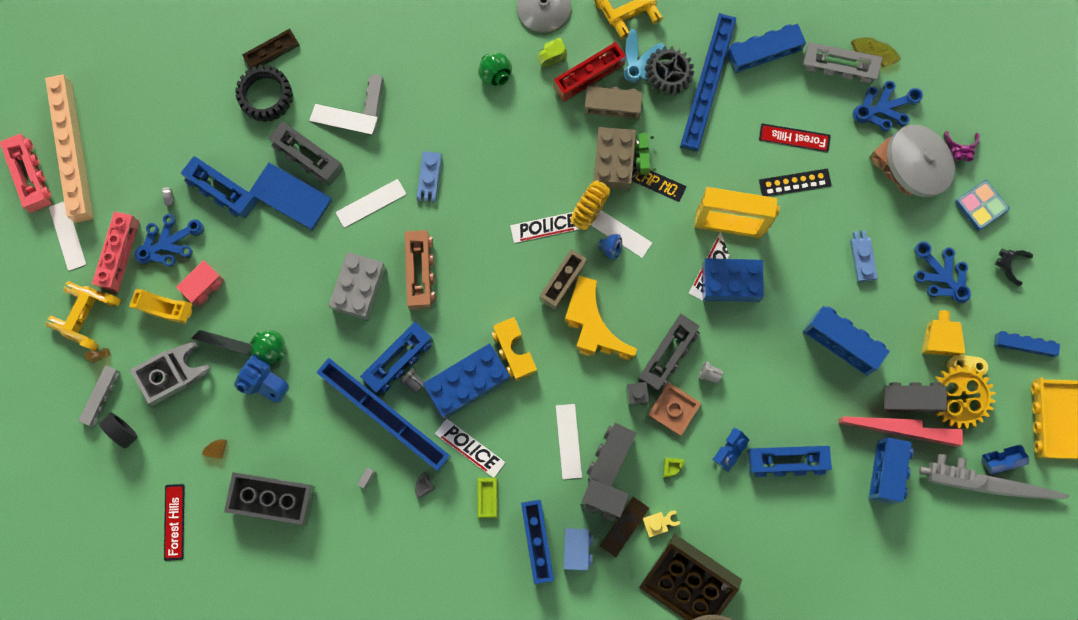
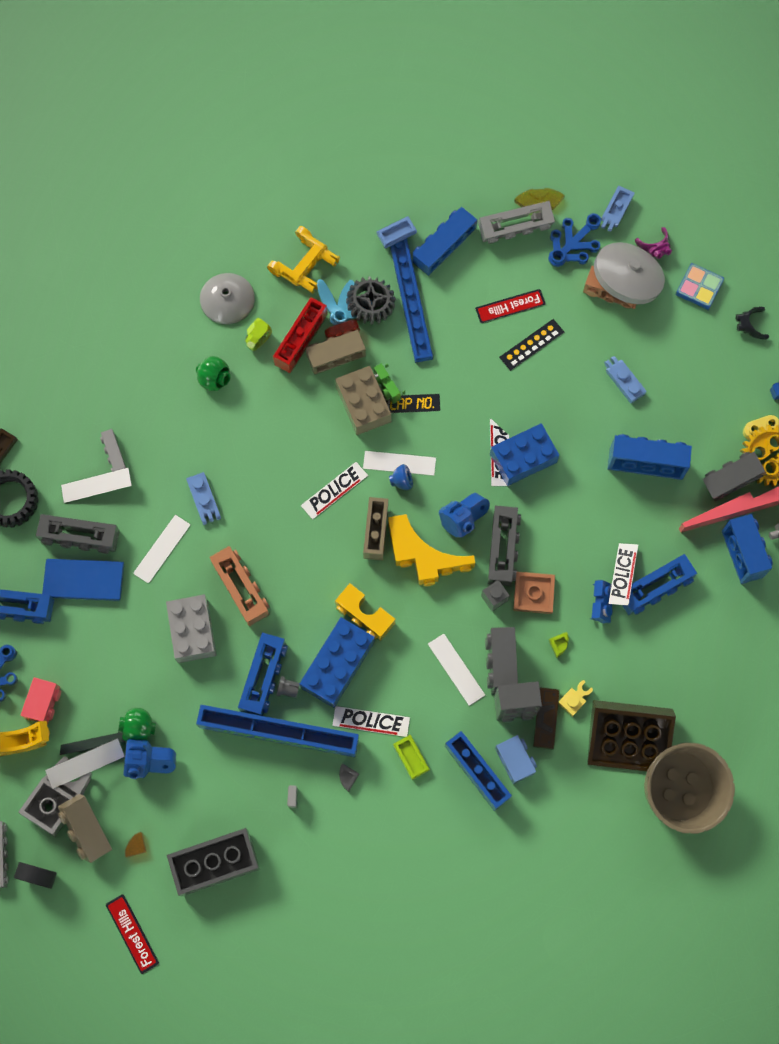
camera: 30 degrees left, 5 degrees down
(176, 412) = (84, 828): none -> dark tan brick
(206, 357) = (84, 763): none -> white sticker
(590, 205) = (365, 451): yellow gear -> none
(626, 84) = (340, 329): none -> clear red beam
(644, 307) = (459, 517): none -> blue piece
(710, 373) = (548, 545): light grey bush -> none
(726, 19) = (396, 232): none -> medium blue tile
(736, 203) = (496, 382): yellow piece -> none
(763, 435) = (623, 574): none -> sticker
(943, 94) = (617, 207): none -> medium blue hinge
(944, 274) = (700, 360): blue plant -> none
(944, 336) = (728, 412): yellow torso -> none

